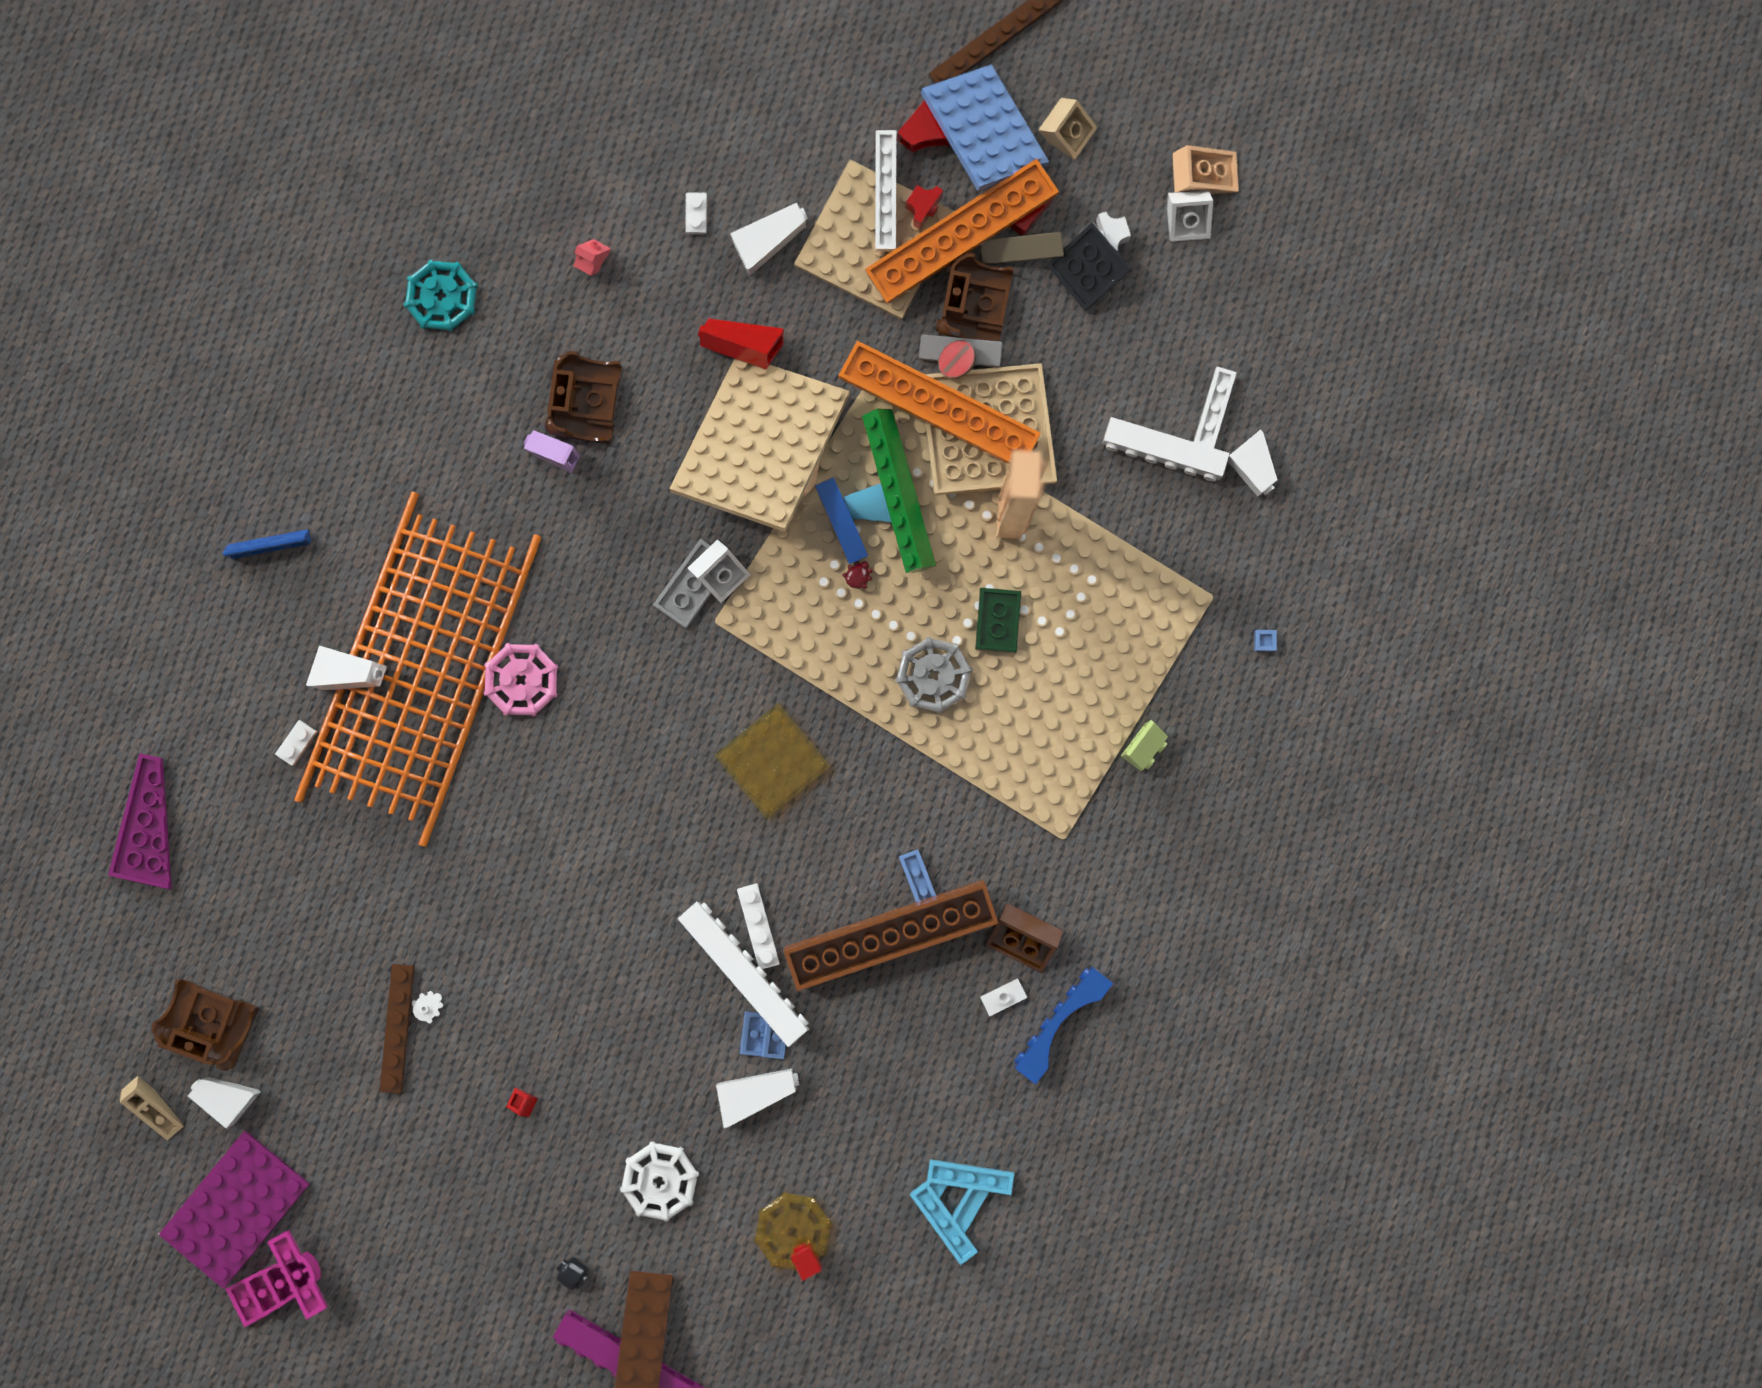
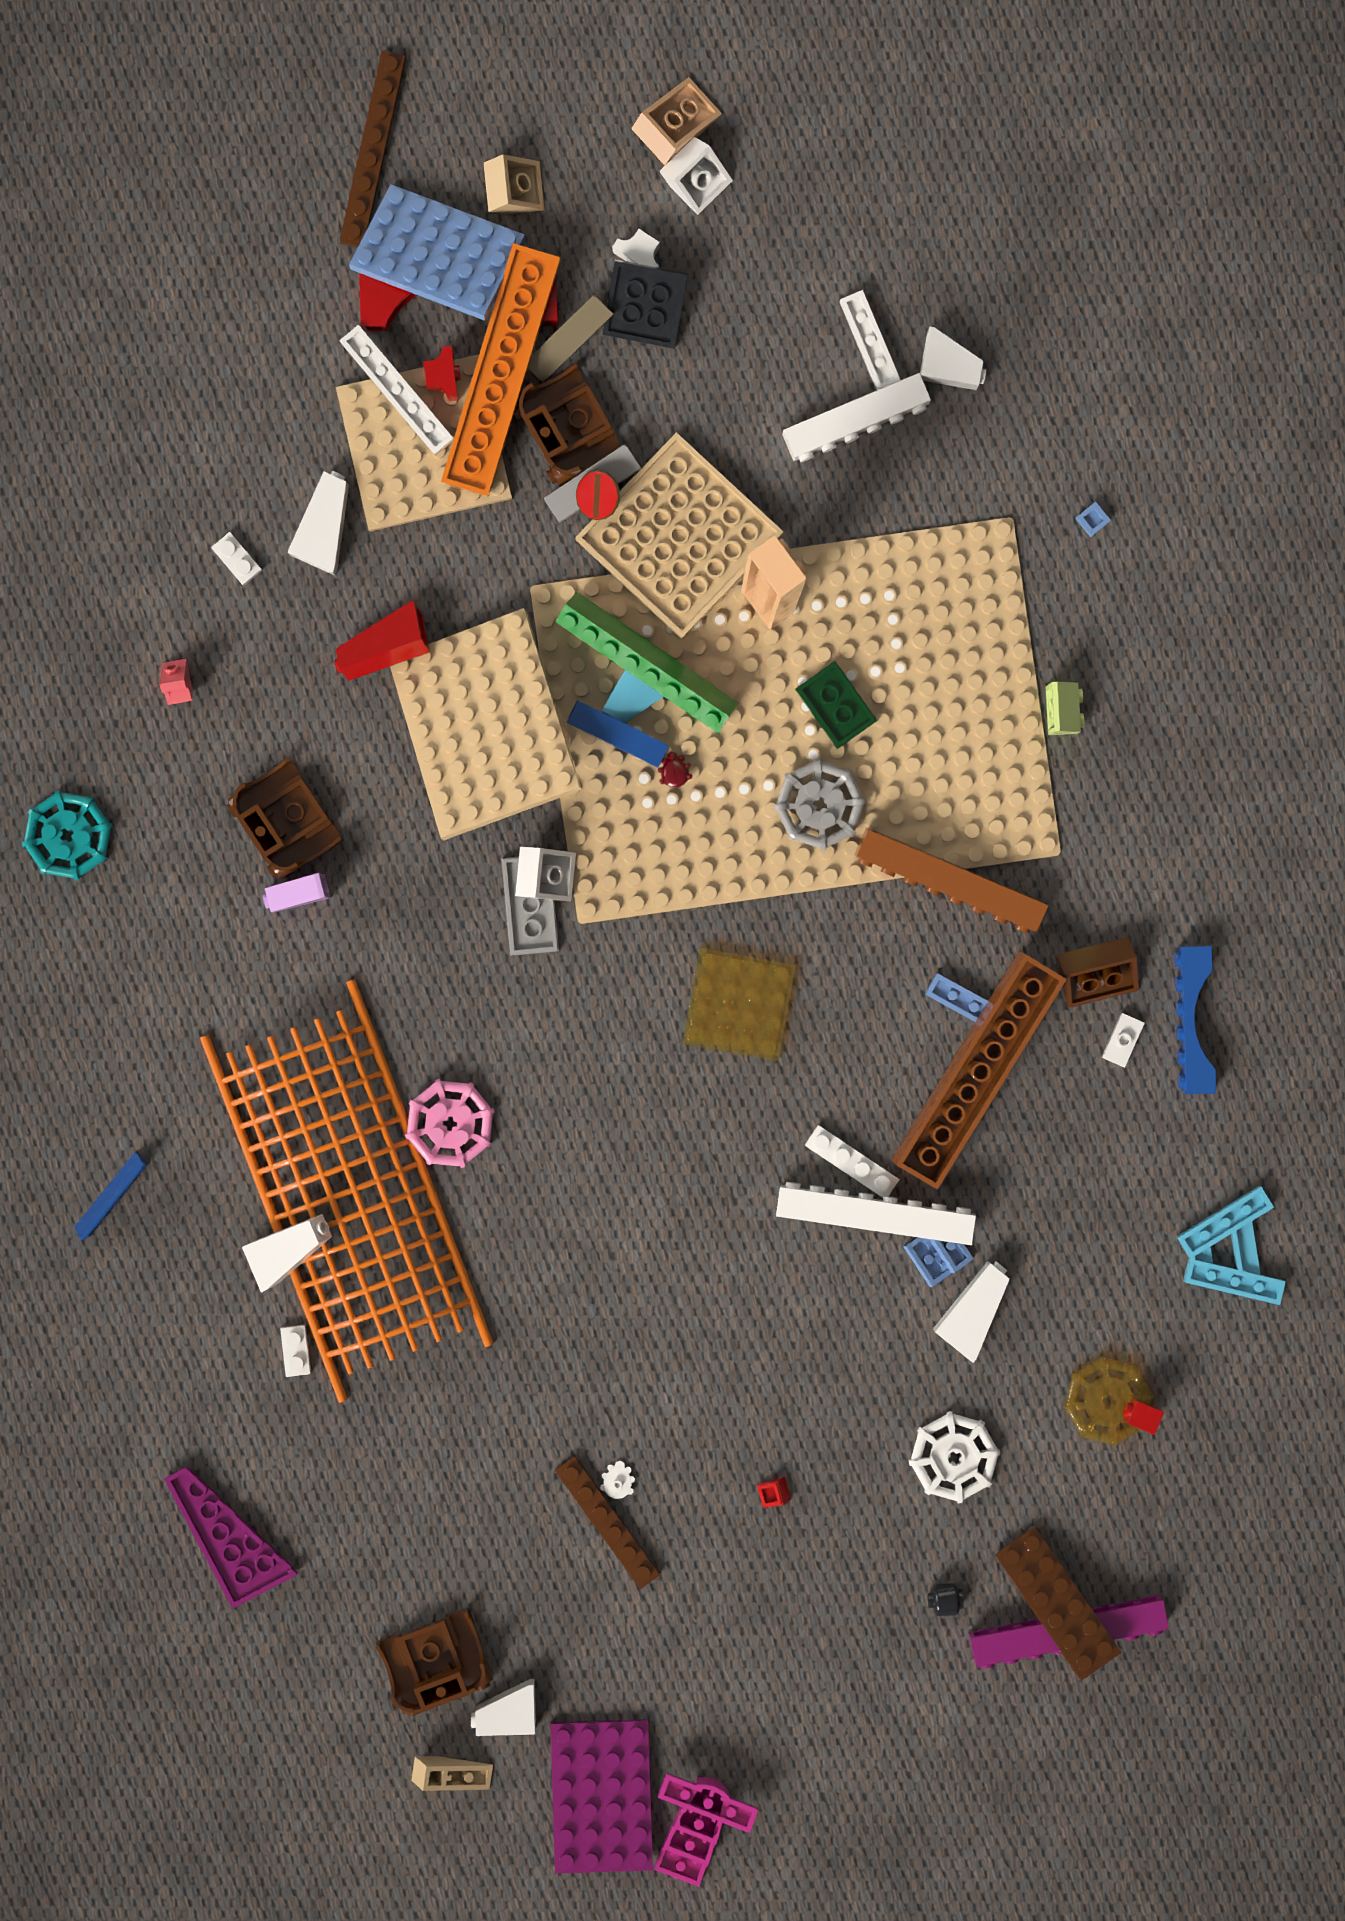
camera: 40 degrees left, 5 degrees up
(936, 403) = (618, 552): orange plate -> none
(977, 795) = (951, 880): none -> dark orange brick

